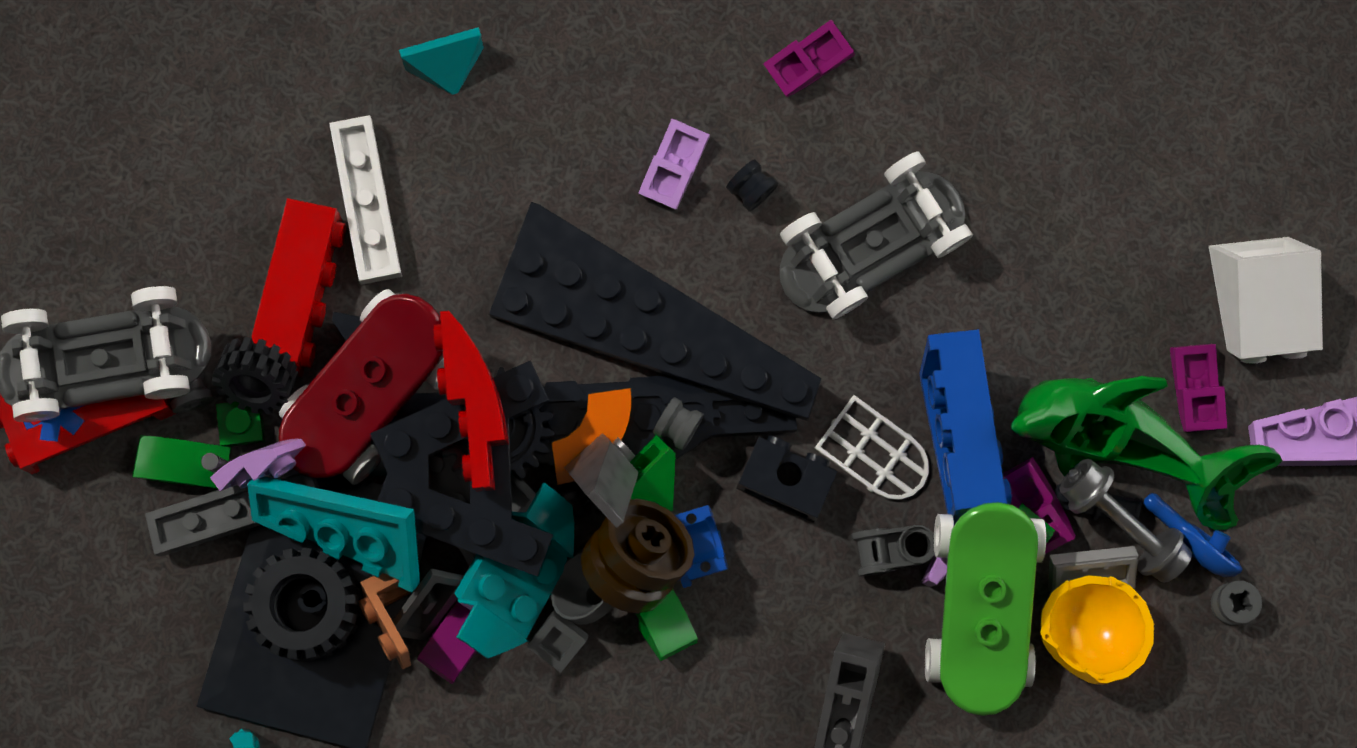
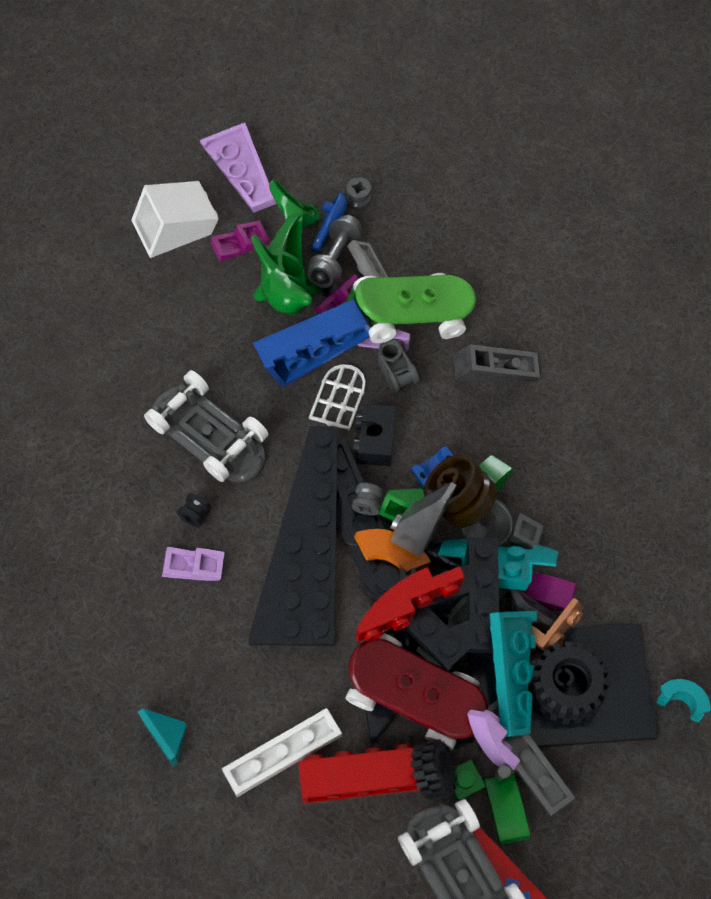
camera: 100 degrees left, 15 degrees down
(809, 59) = (94, 504): magenta slope -> none
(1097, 628) = (403, 247): yellow cylinder -> none

